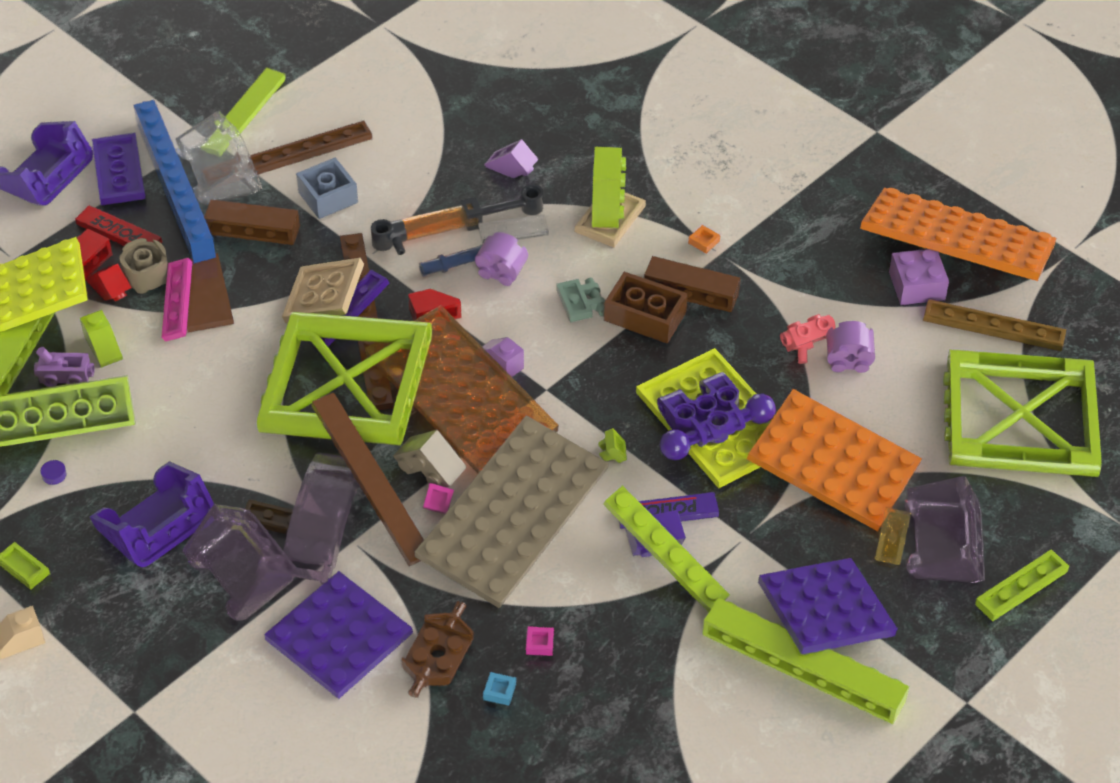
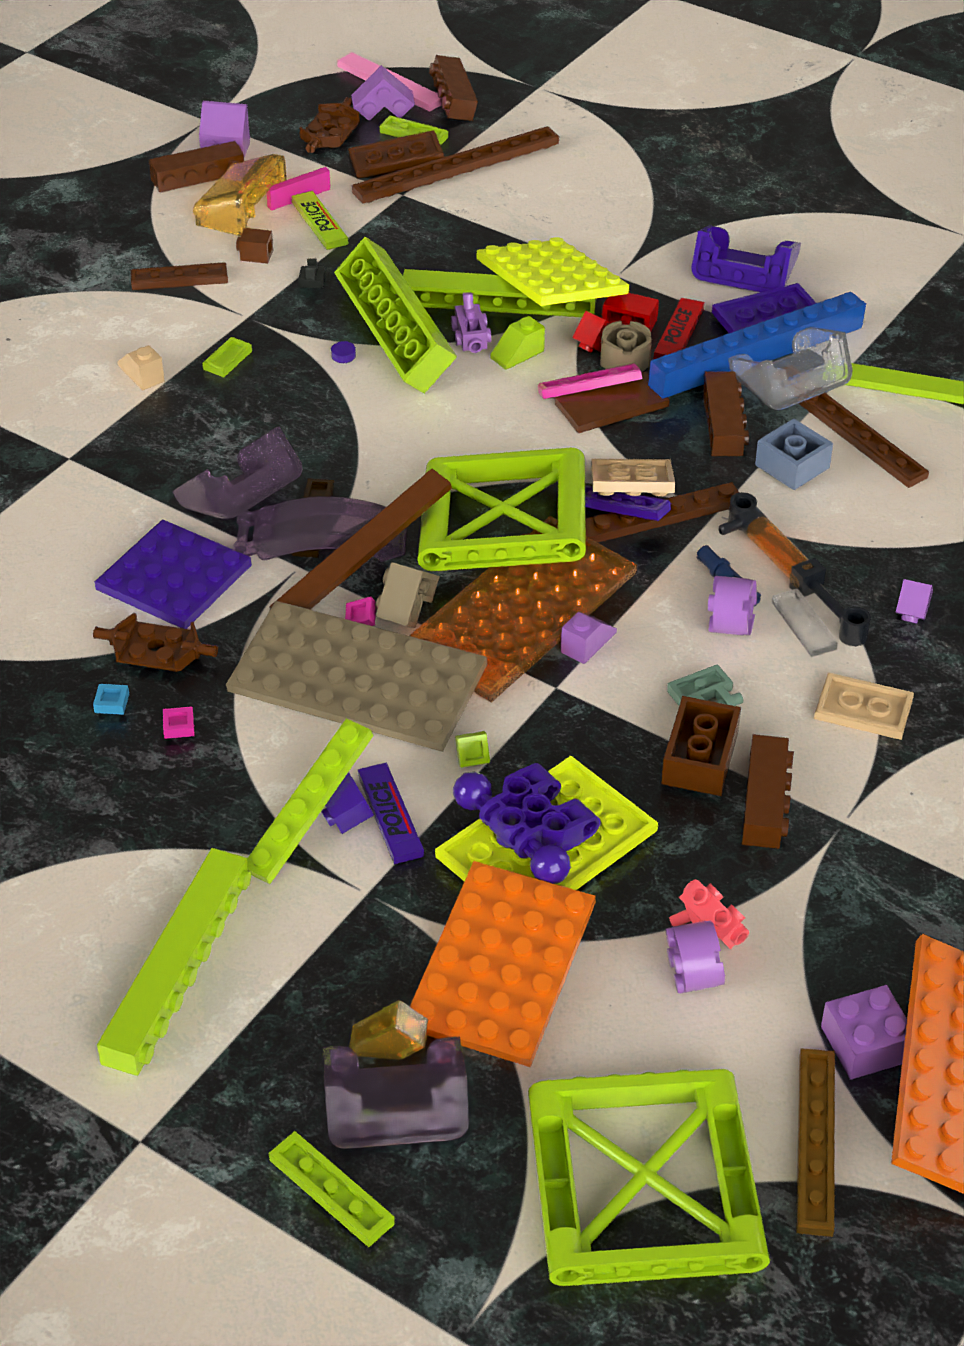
camera: 80 degrees right, 5 degrees down
(160, 519) = (271, 403): dark purple windscreen -> none
(429, 299) = (648, 562): red slope -> none
(607, 187) = (870, 664): lime brick -> none
(704, 239) = (854, 796): orange plate -> none
(826, 605) = (254, 968): dark purple plate -> none

